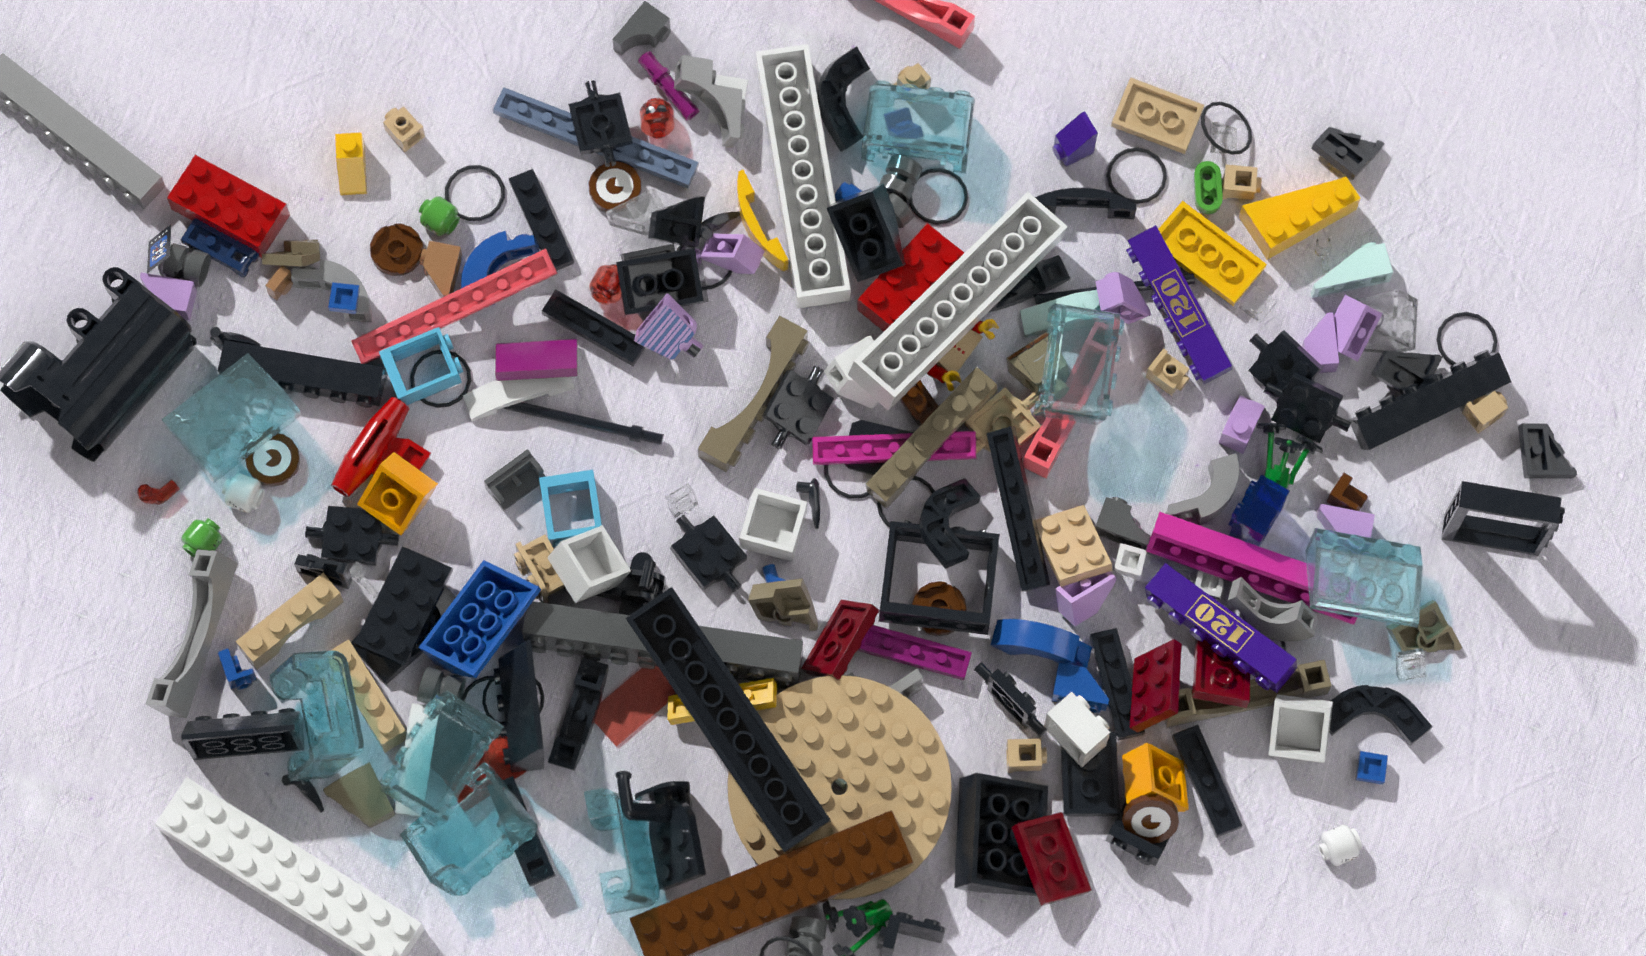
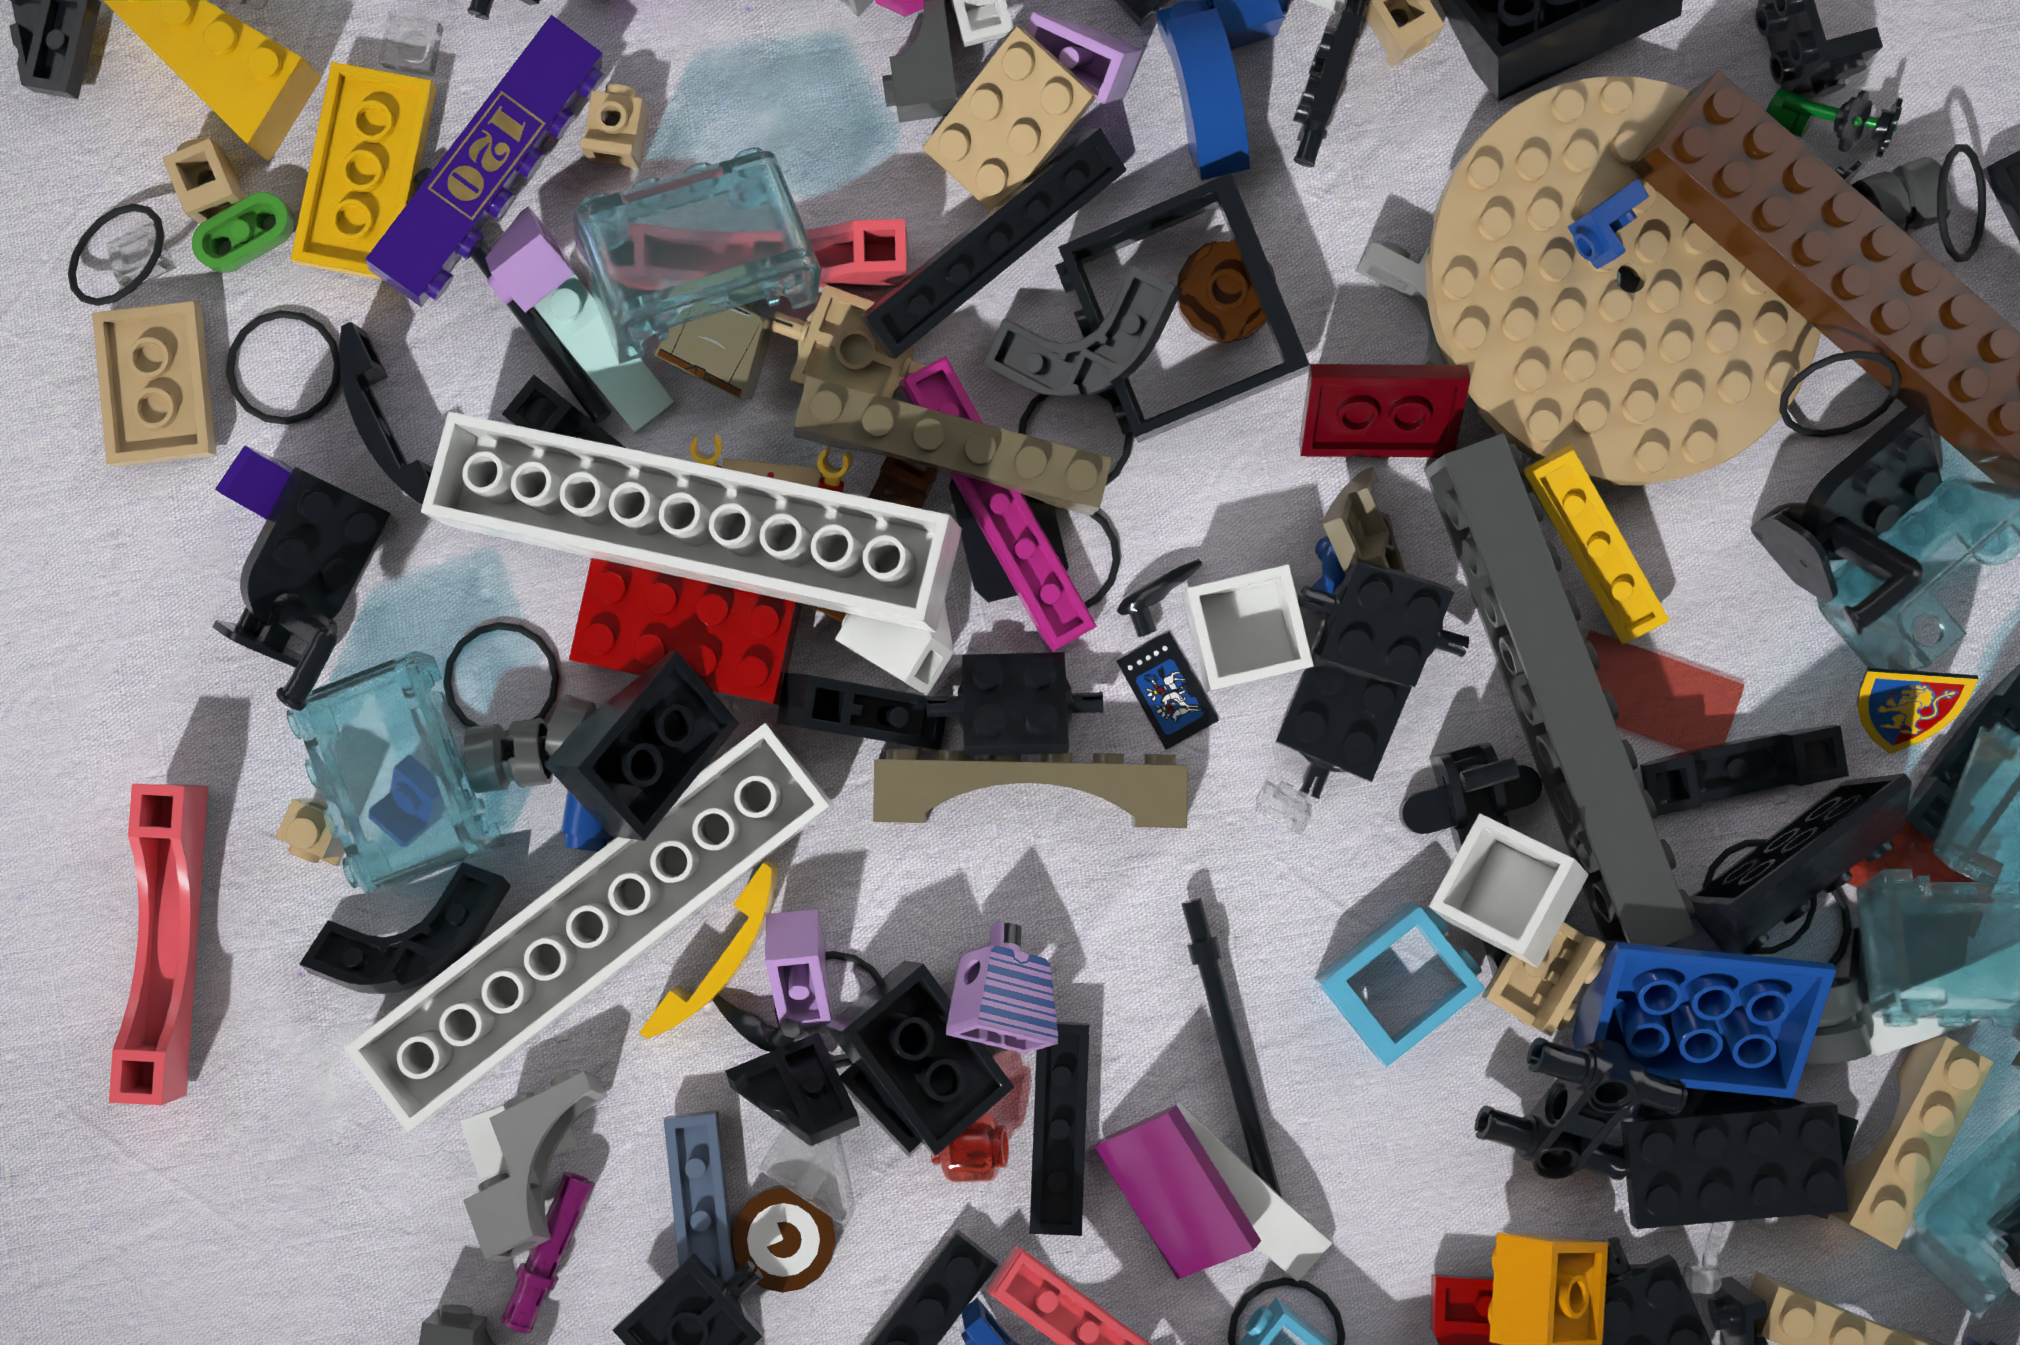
camera: 115 degrees left, 15 degrees up
(479, 557) = (1580, 1108): none -> black piece
(514, 480) = (1401, 1106): dark grey hinge -> none
(566, 800) = (1910, 705): none -> shield
(657, 118) = (620, 1237): clear red head -> none
(716, 879) = (1829, 360): none -> black piece
(728, 719) = (1658, 503): black brick -> none
(741, 585) = (1383, 621): none -> black plate
(768, 479) = (1167, 690): none -> black sticker
(834, 337) = (858, 711): none -> black slope
(872, 782) = (1596, 230): none -> blue bracket
(916, 652) = (1322, 275): magenta plate -> none
(1029, 131) = (303, 576): none -> black plate

